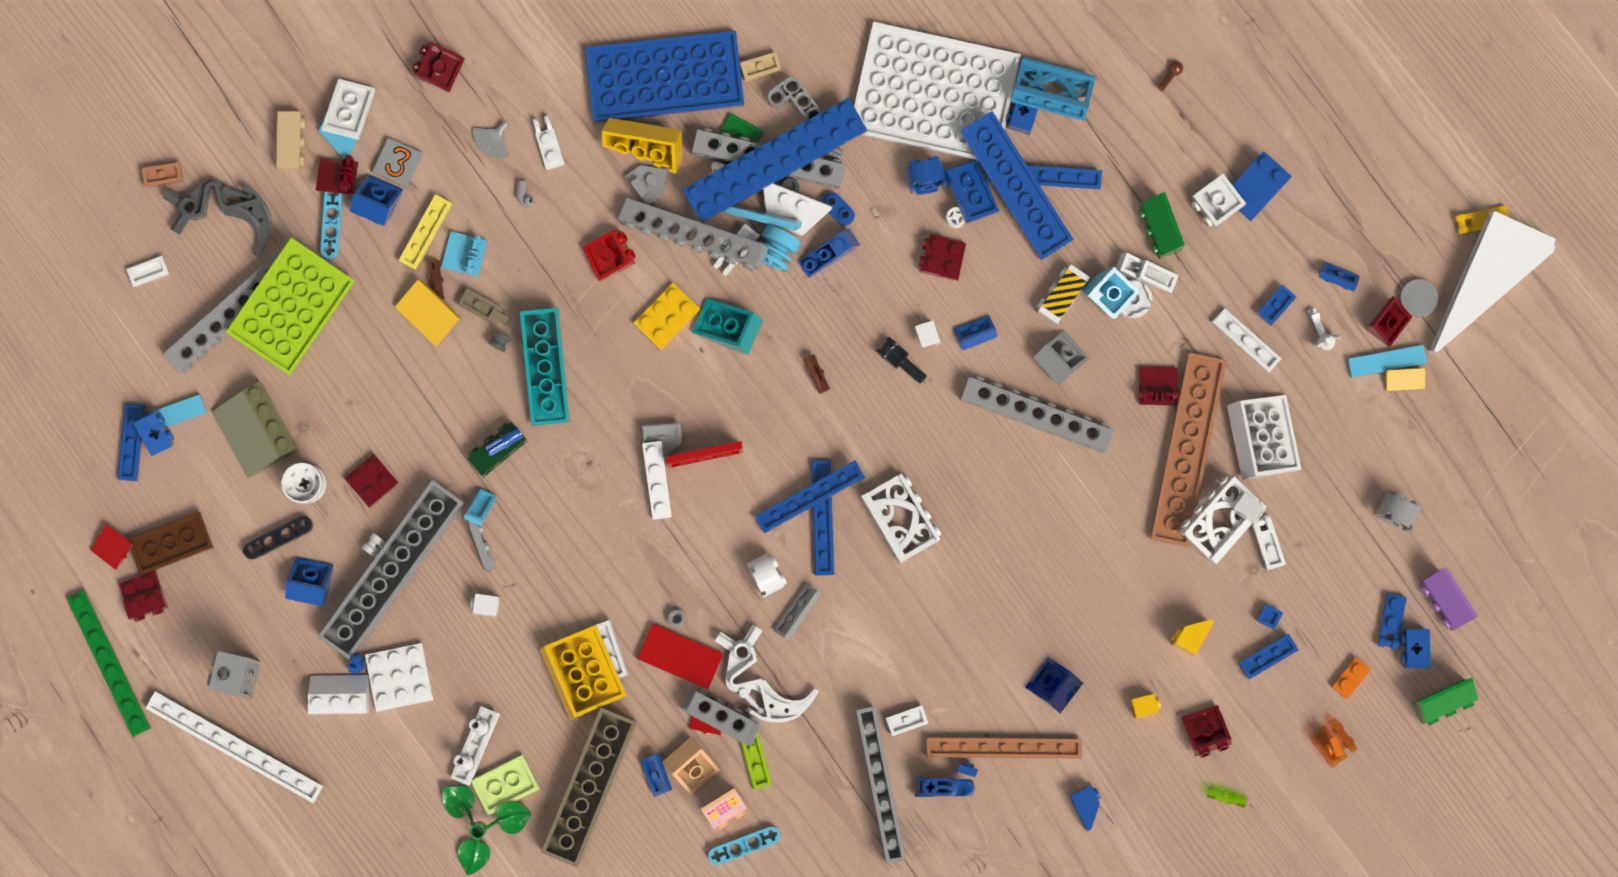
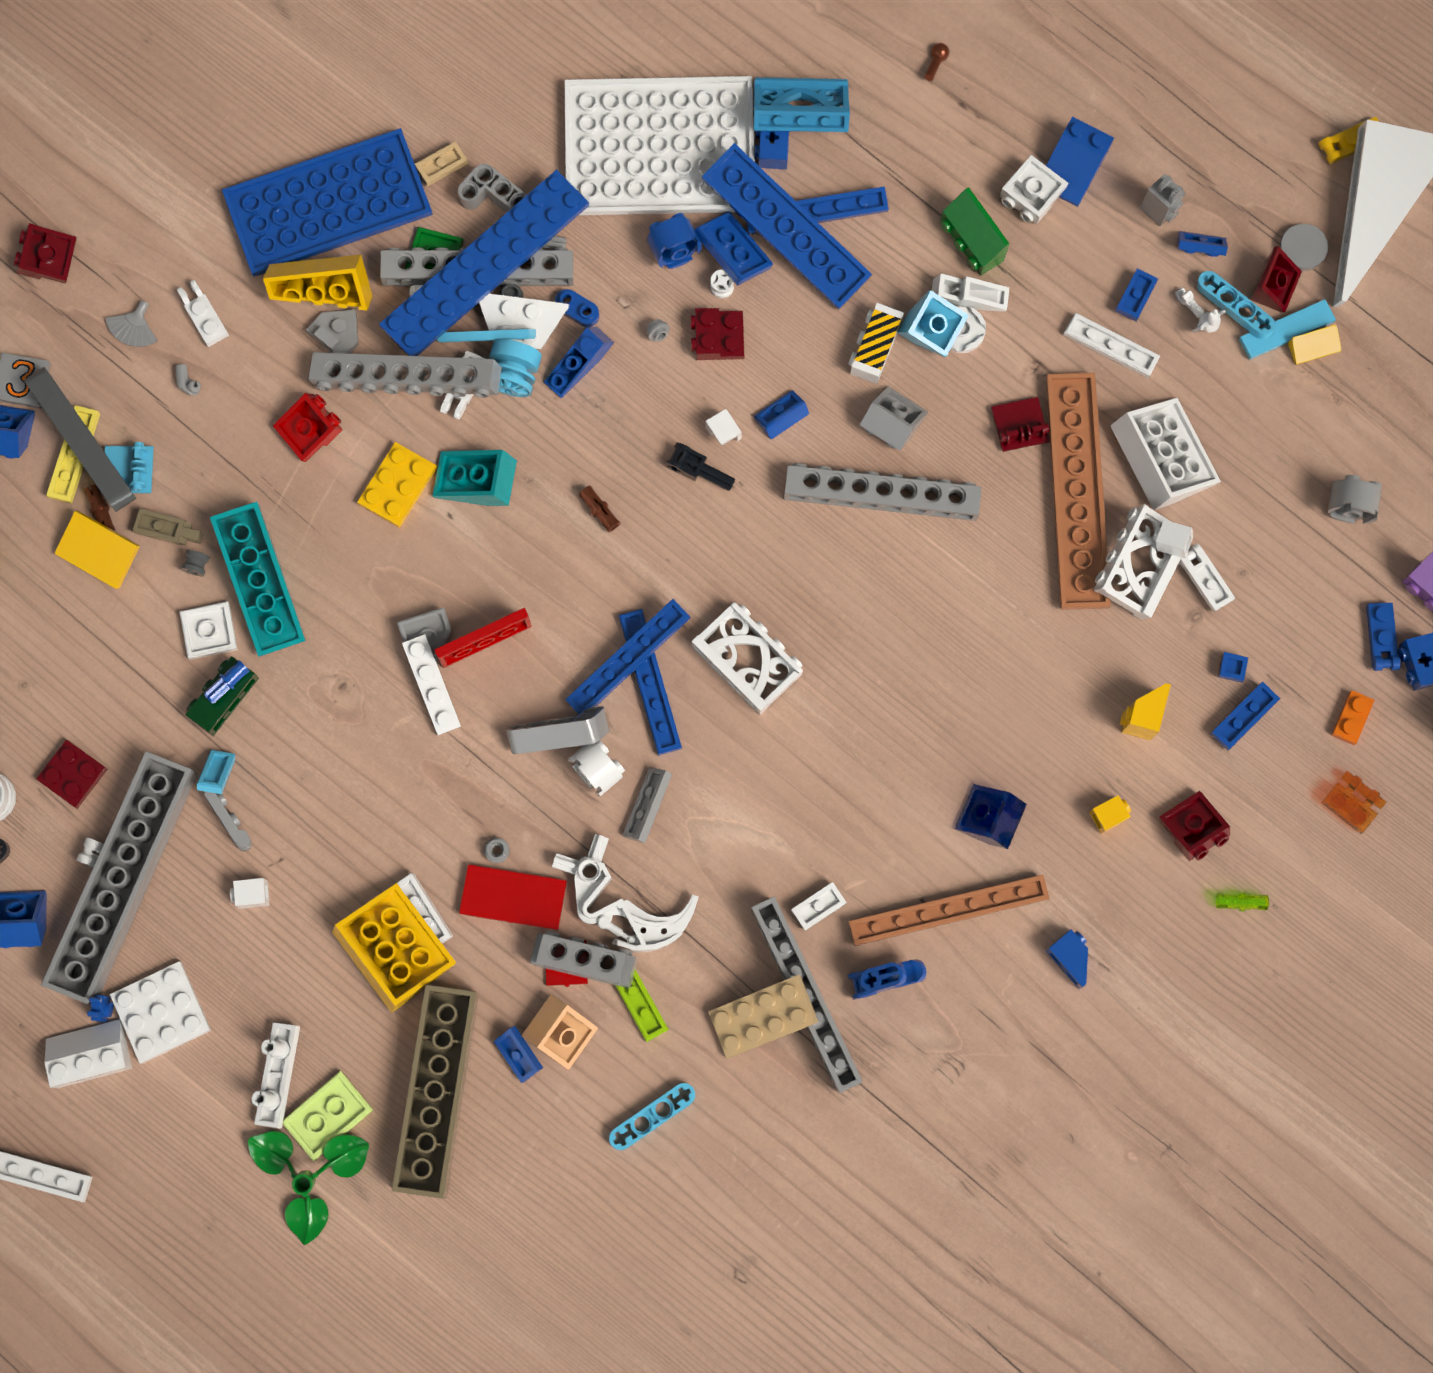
camera: 15 degrees left, 5 degrees down
(434, 223) = (80, 439): none -> dark grey beam
(498, 395) = (208, 630): none -> white tile
(724, 809) = (615, 1075): light nougat slope -> none
(744, 542) = (559, 733): none -> light grey beam
(844, 793) = (763, 1016): none -> tan plate
(896, 243) = (657, 330): none -> light grey plate
(967, 769) = (910, 948): blue plate -> none
(1316, 236) = (1163, 200): none -> light grey hinge
(1333, 747) = (1359, 805): orange plate -> none
(1355, 330) = (1239, 301): none -> medium azure beam

